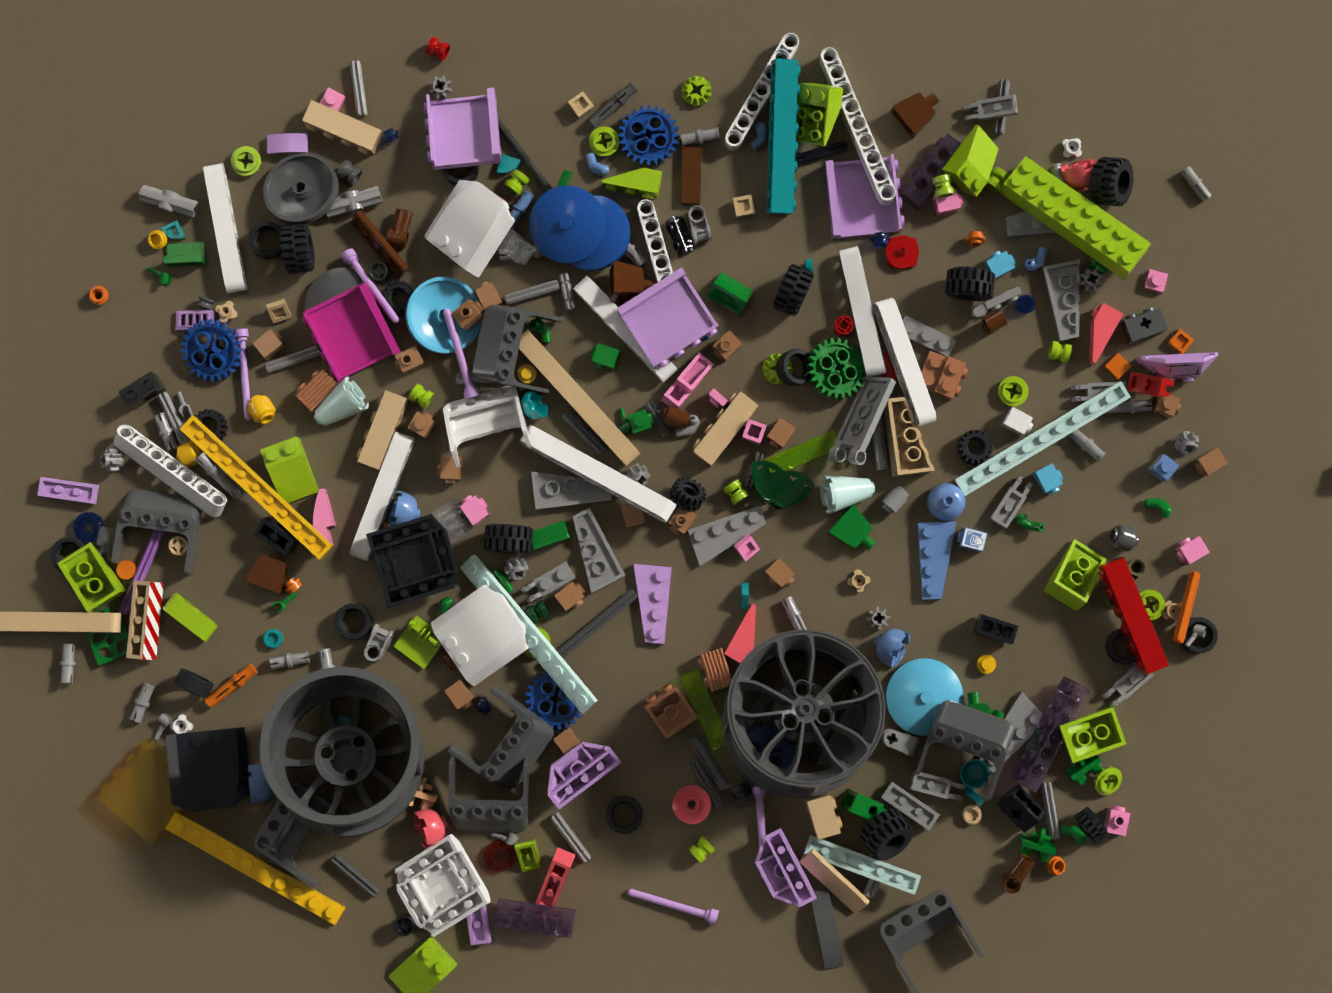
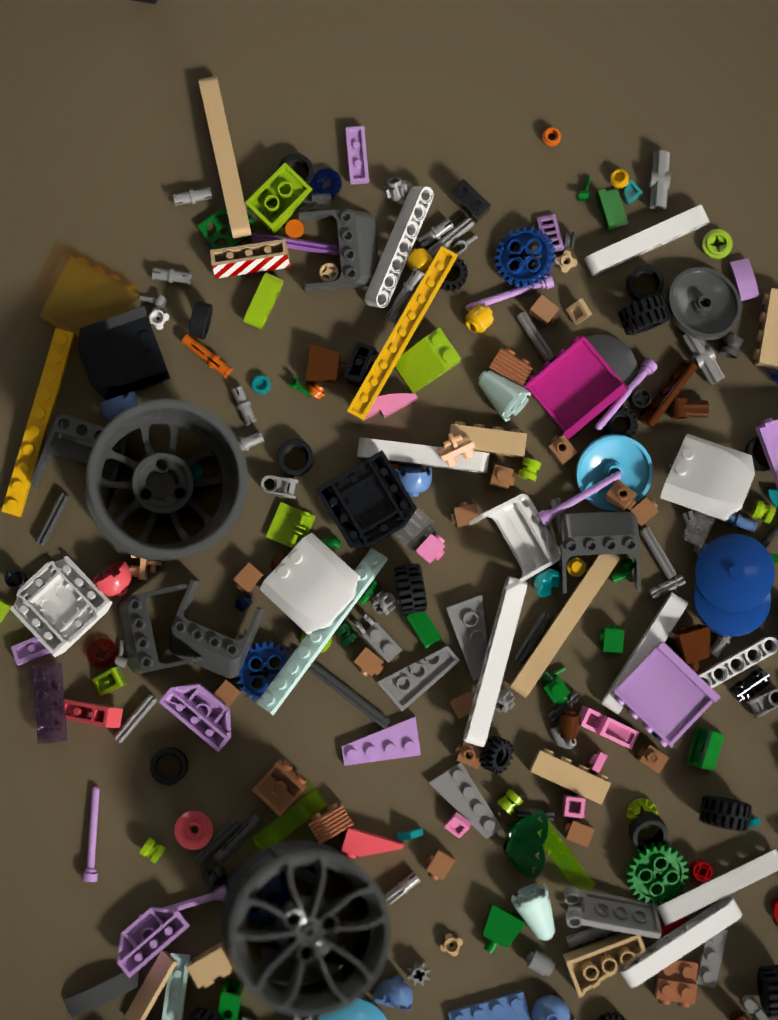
camera: 75 degrees right, 0 degrees up
(380, 462) = (454, 447): none -> light nougat hips

